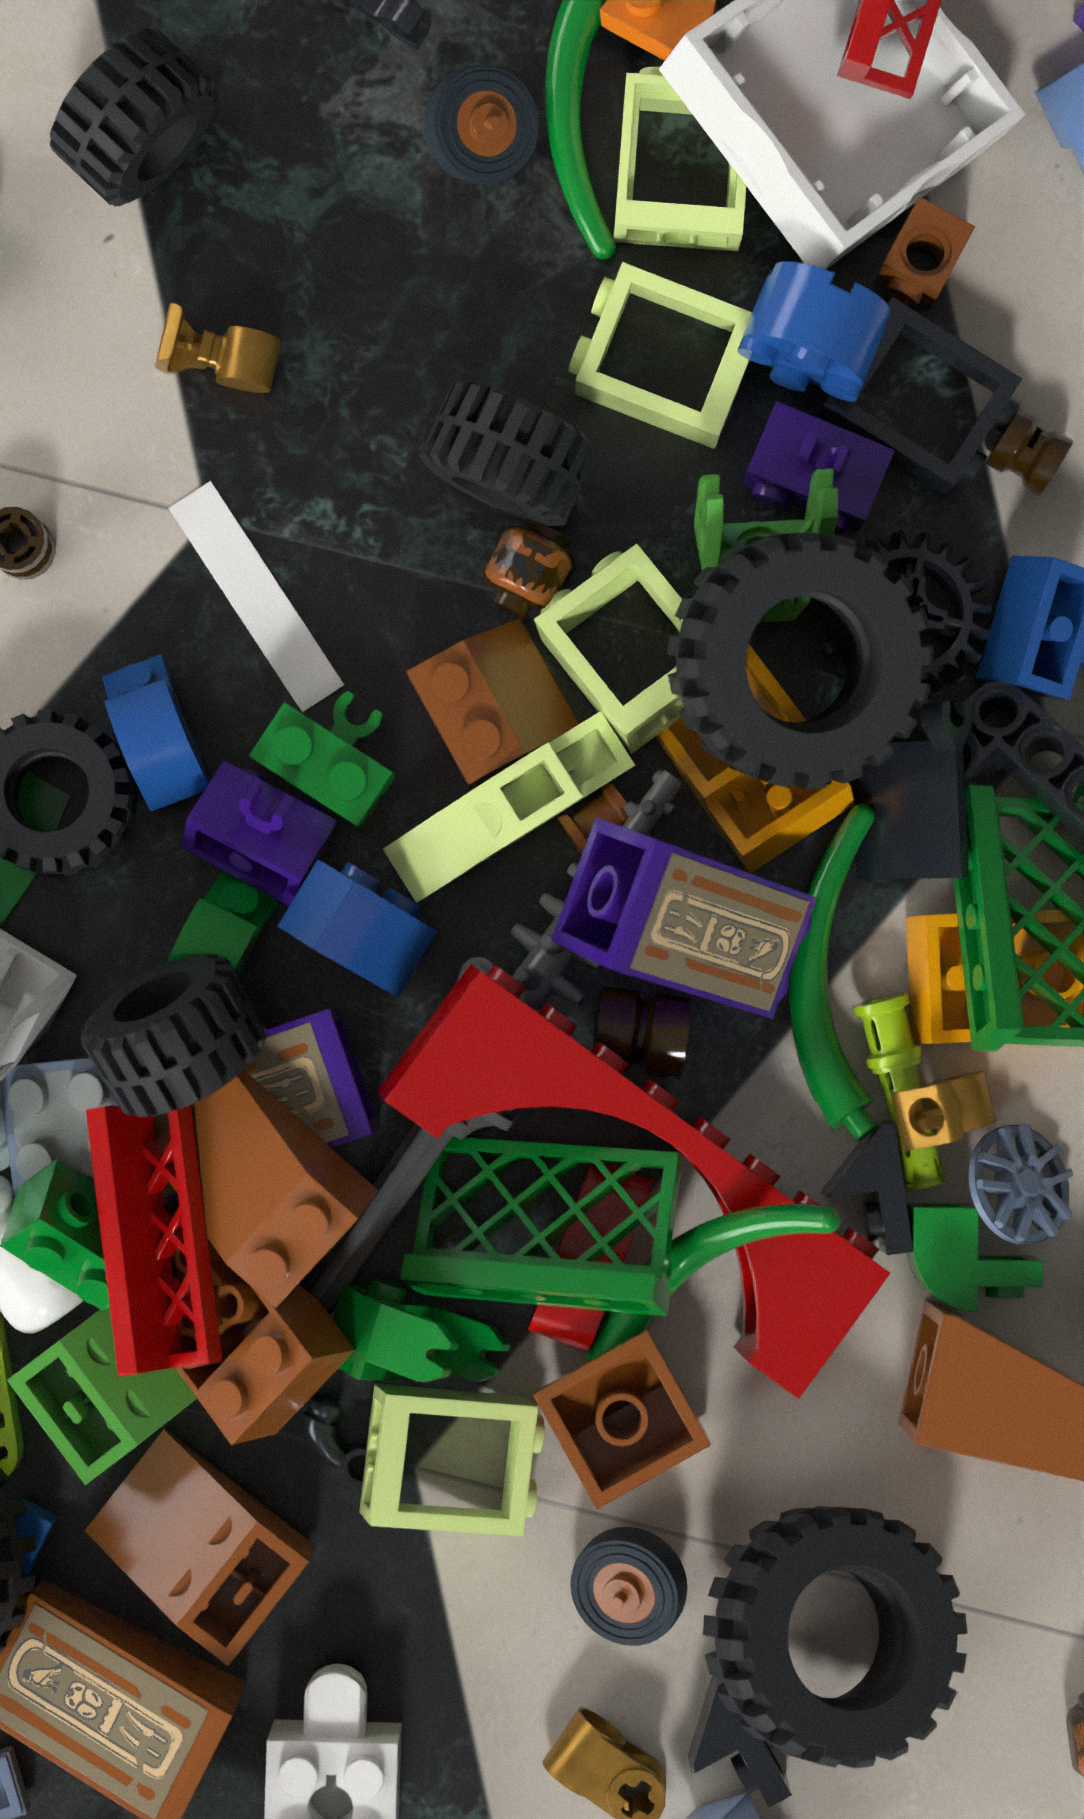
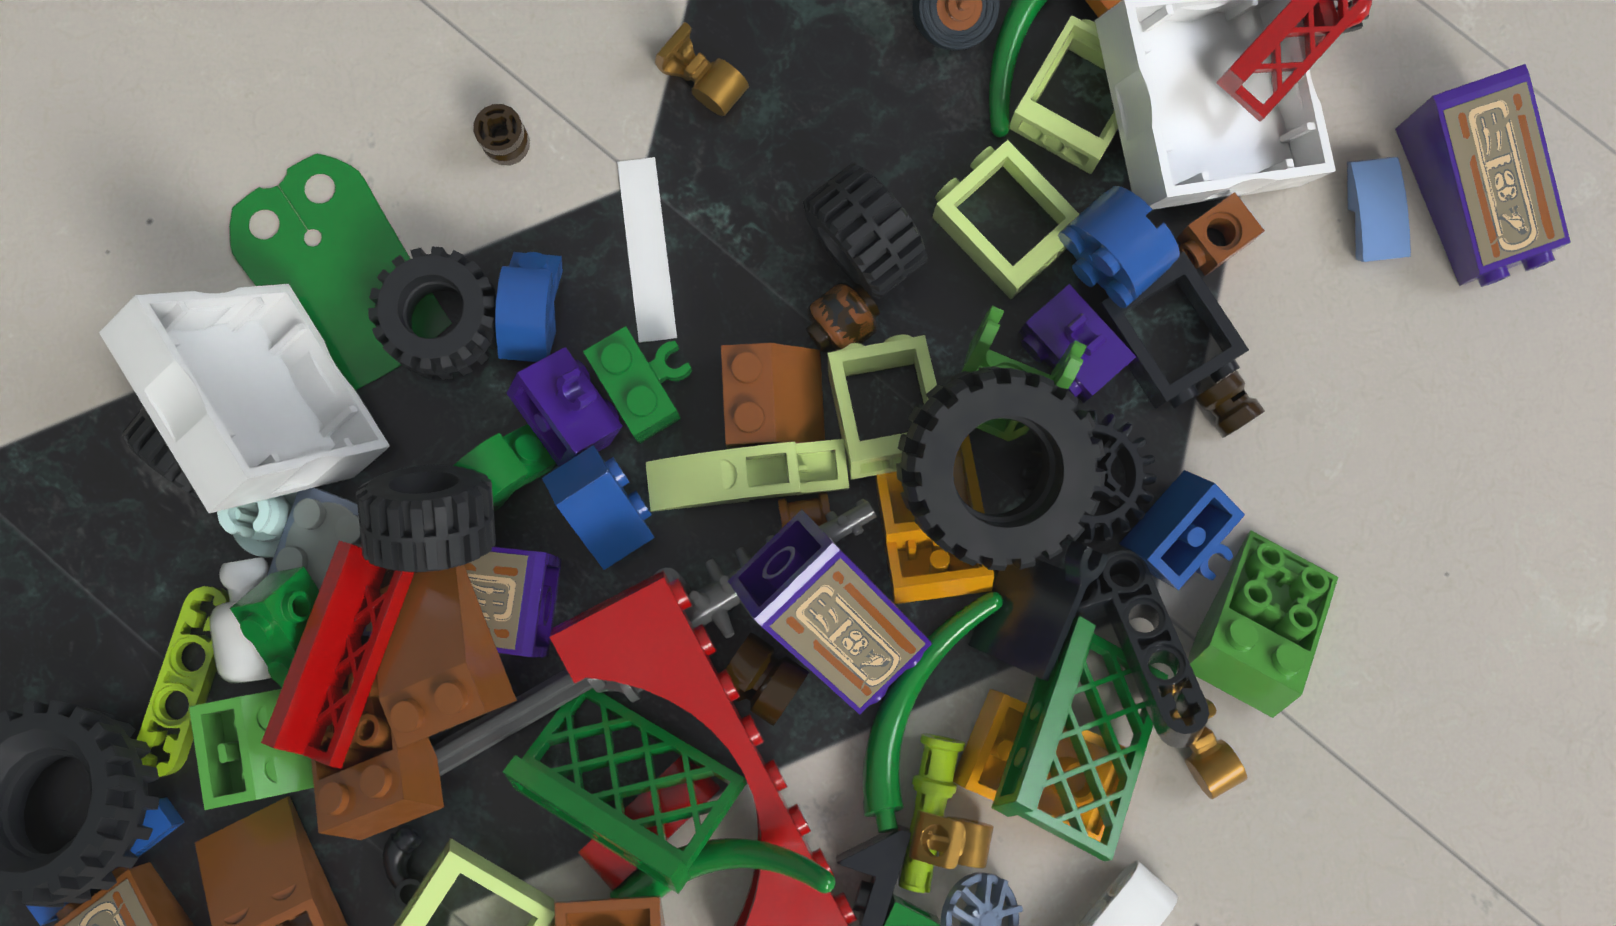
camera: 25 degrees right, 5 degrees down
(412, 1338) = (487, 812): green piece -> none

